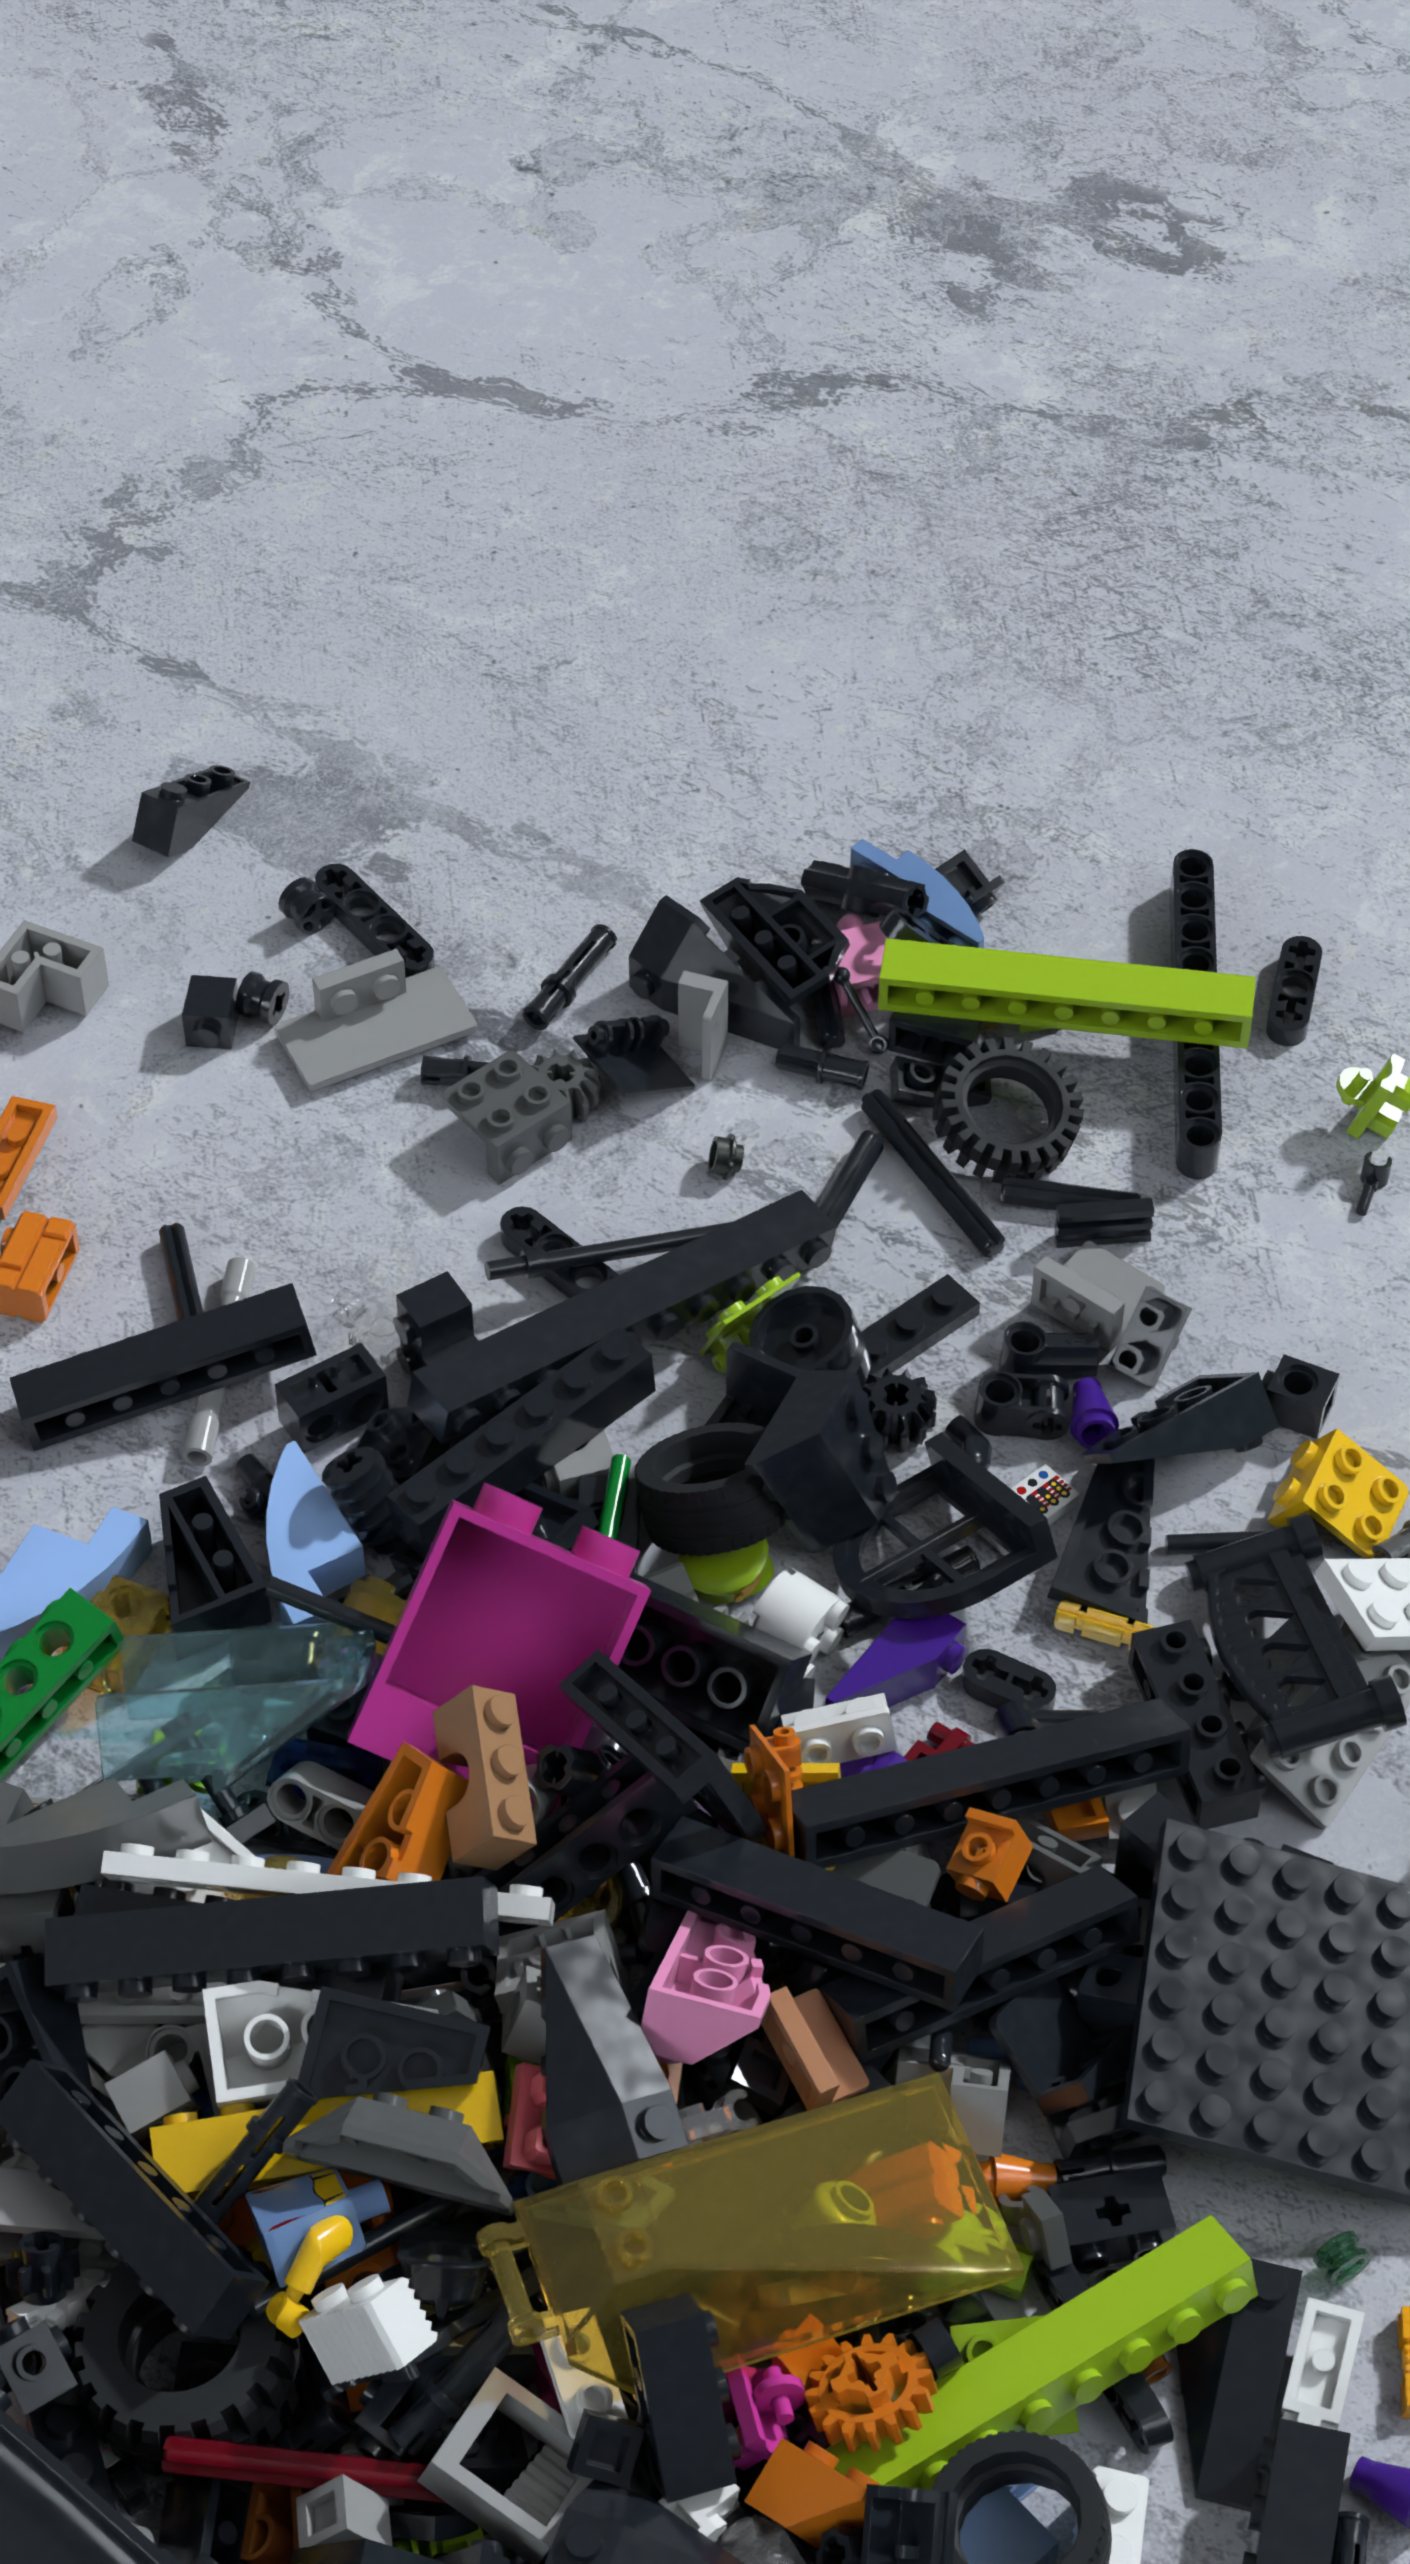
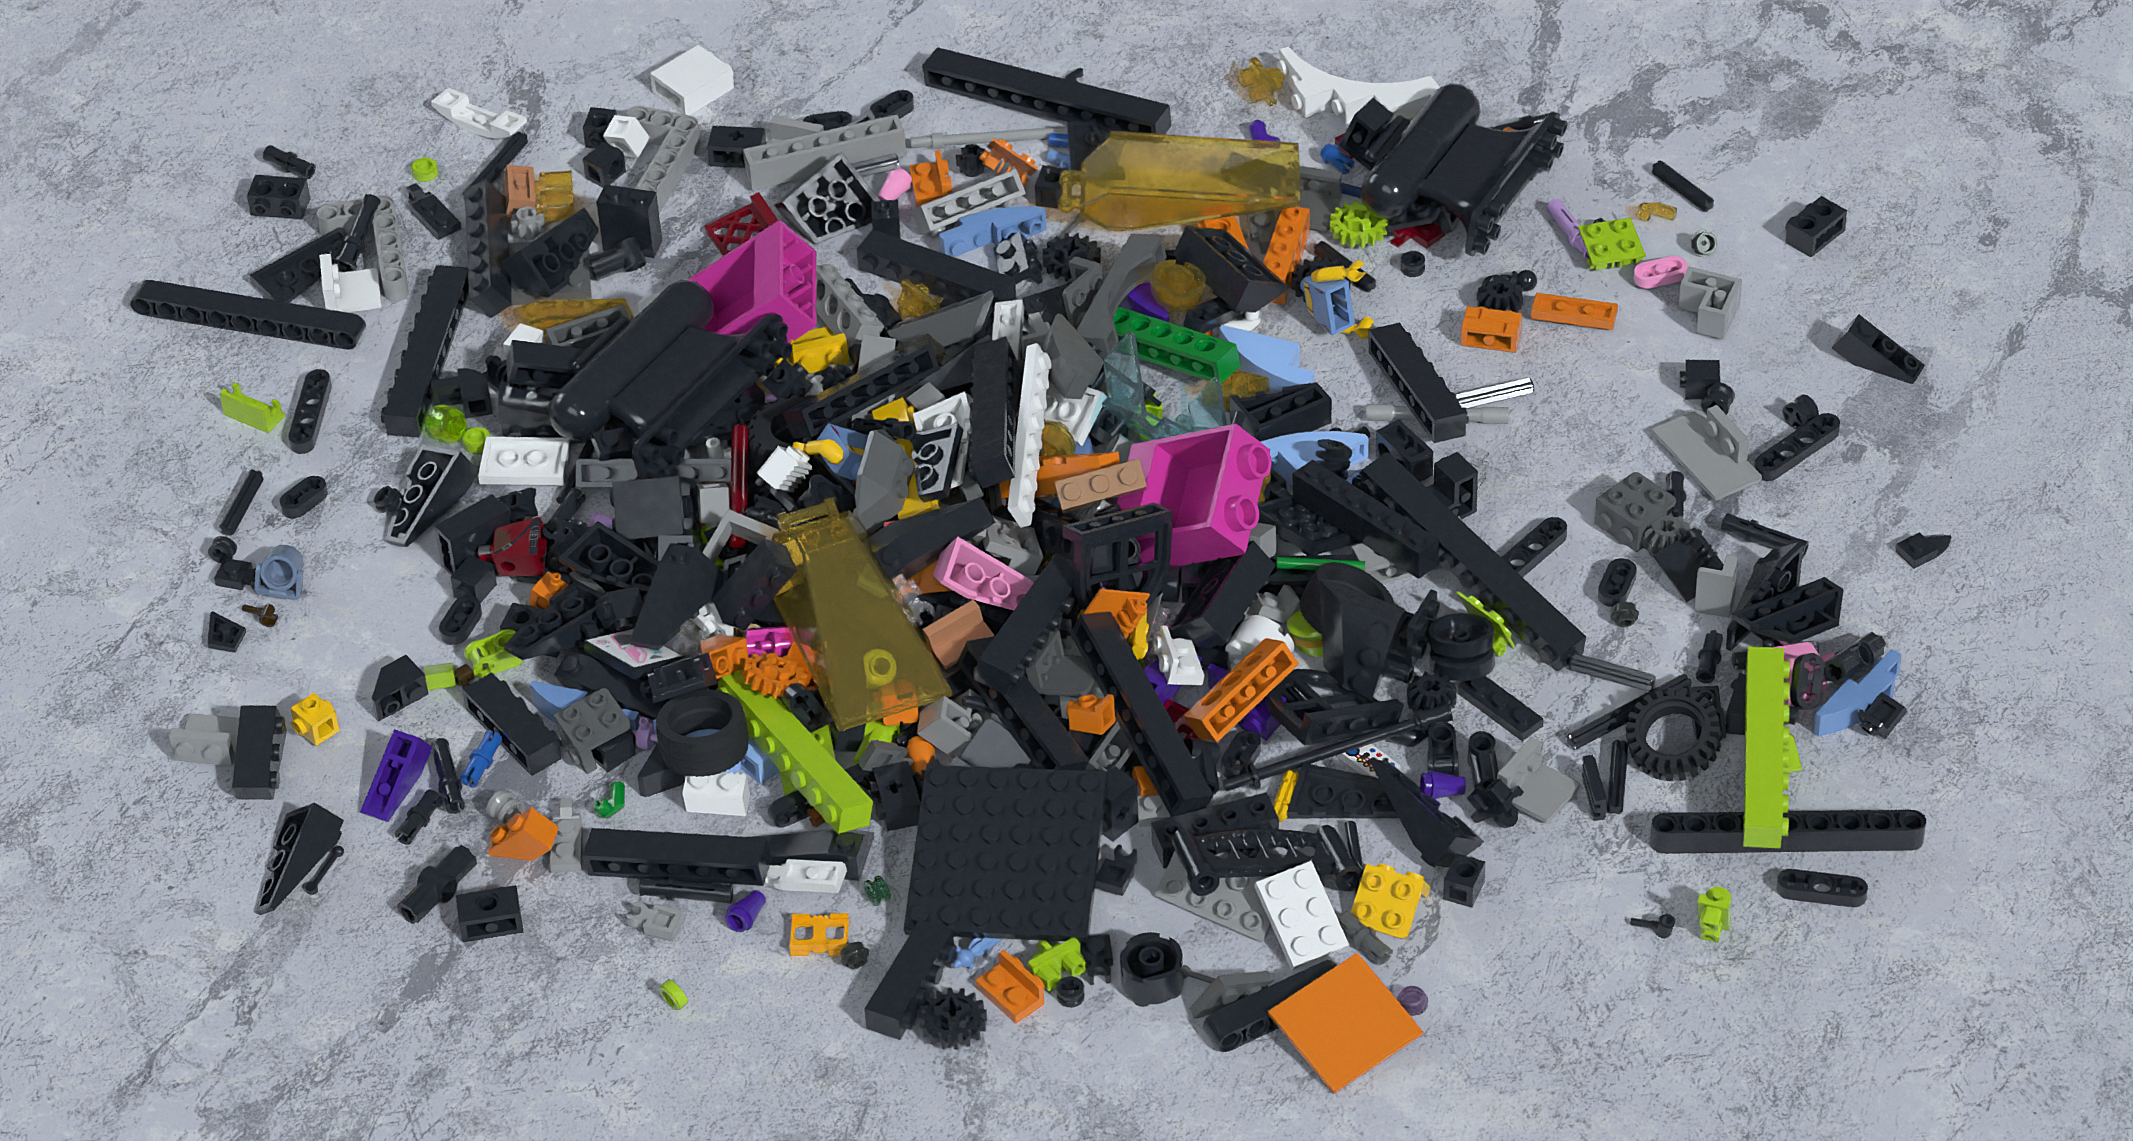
camera: 90 degrees right, 5 degrees down
(536, 1262) = (1515, 528): black bar -> none
(609, 813) = (1922, 549): none -> black plate
(659, 1158) = (1617, 582): none -> black plate
(972, 1417) = (1419, 721): none -> black bar
(994, 1683) = (1241, 689): none -> orange brick

